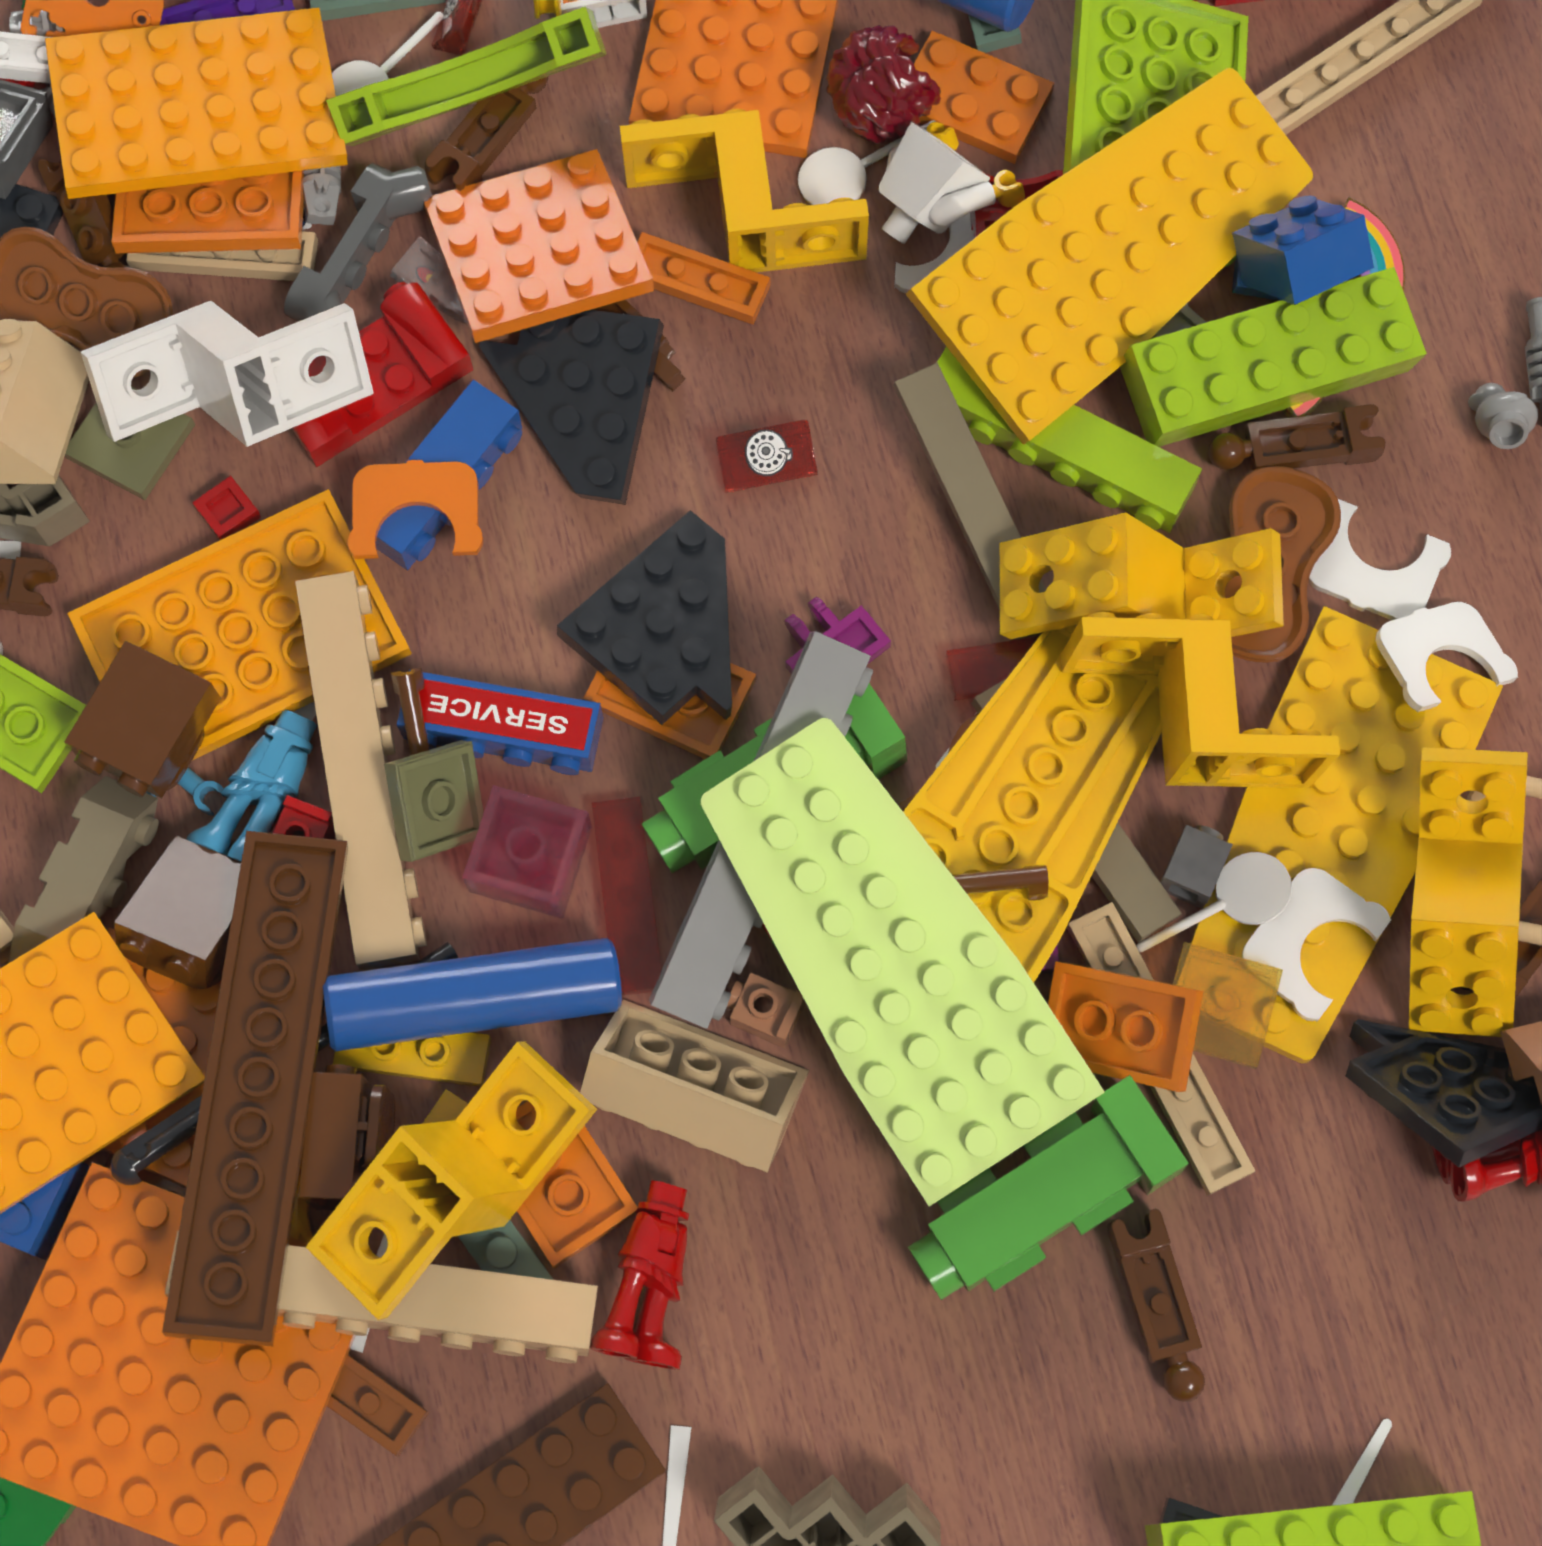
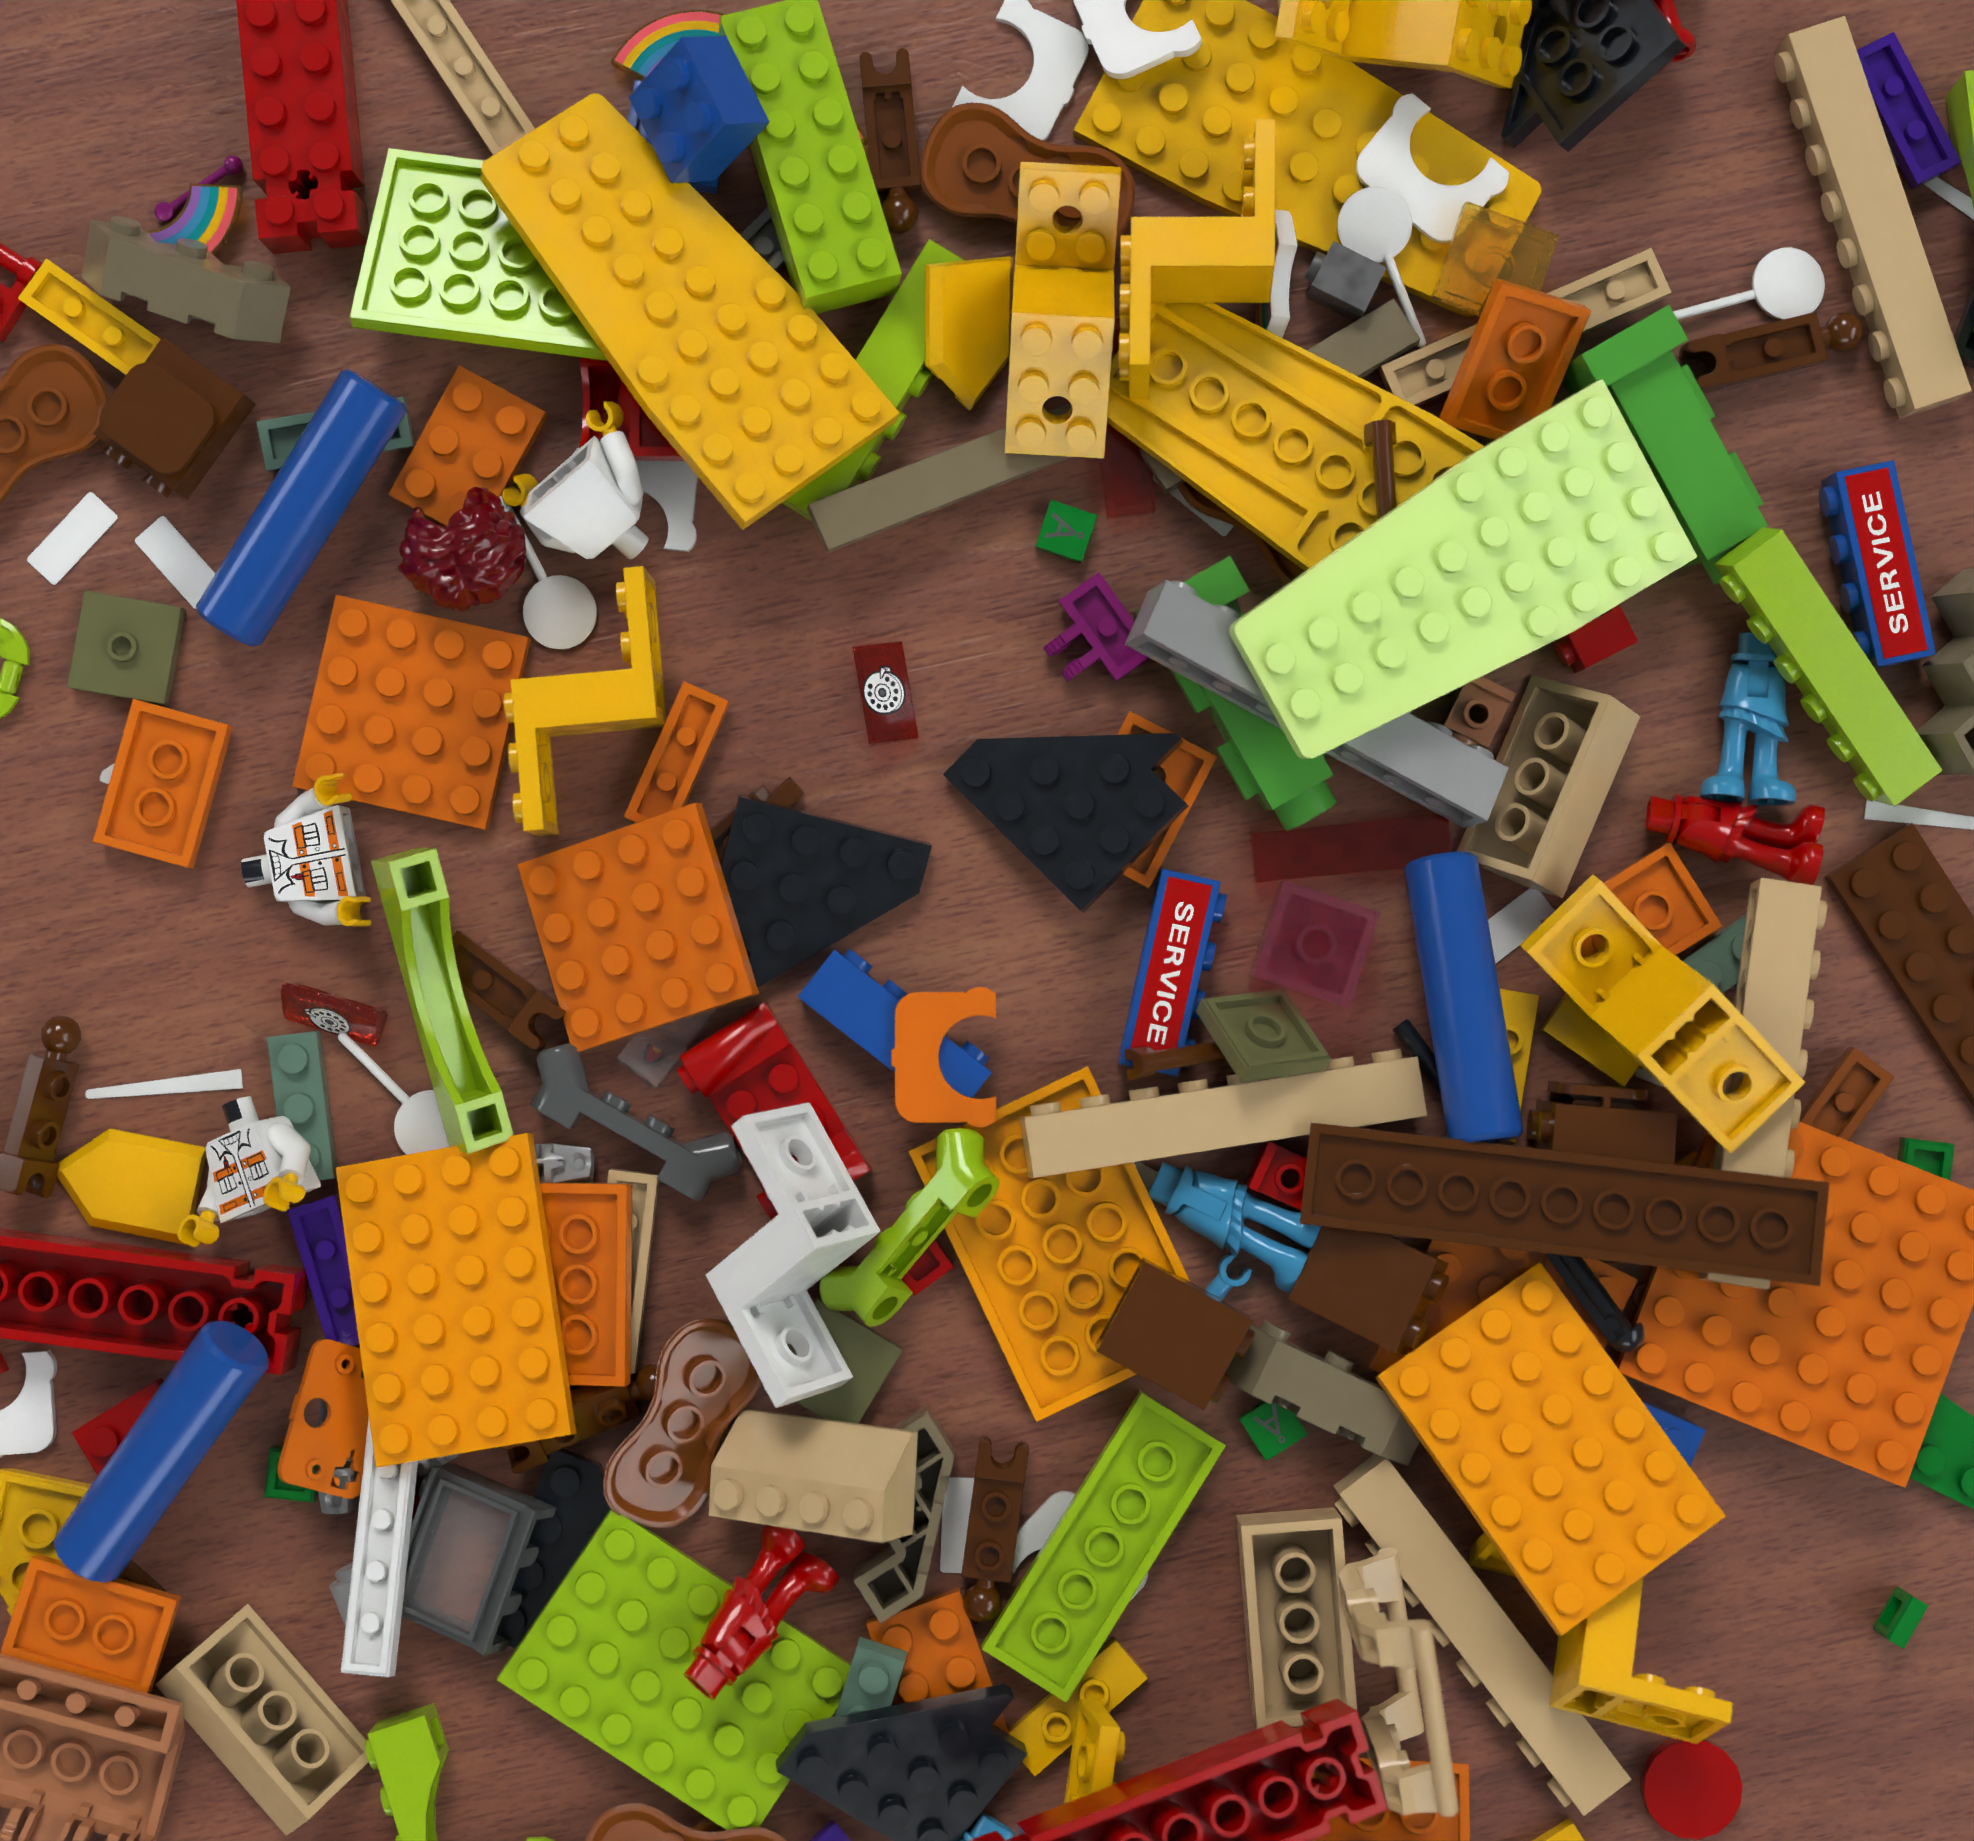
camera: 90 degrees left, 15 degrees up
(47, 831) = (1272, 1428): none -> green tile
(288, 521) = (959, 1186): none -> lime plate
(310, 1501) = (1927, 1155): none -> green tile
(550, 1048) = (1517, 922): none -> white sticker
(787, 1295) = (1754, 703): none -> dark azure piece
(822, 1359) = (1827, 667): none -> lime brick
(846, 1126) = (1595, 640): none -> red brick
(930, 616) = (1066, 531): none -> green tile
(936, 1422) = (1877, 564): none -> brick
(1139, 486) = (968, 323): none -> yellow tile
(1194, 796) = (1276, 314): none -> white tile
(1229, 1319) = (1783, 285): none -> white piece
(1307, 1406) = (1871, 218): none -> tan brick
(1426, 1438) = (1906, 113): none -> dark purple plate

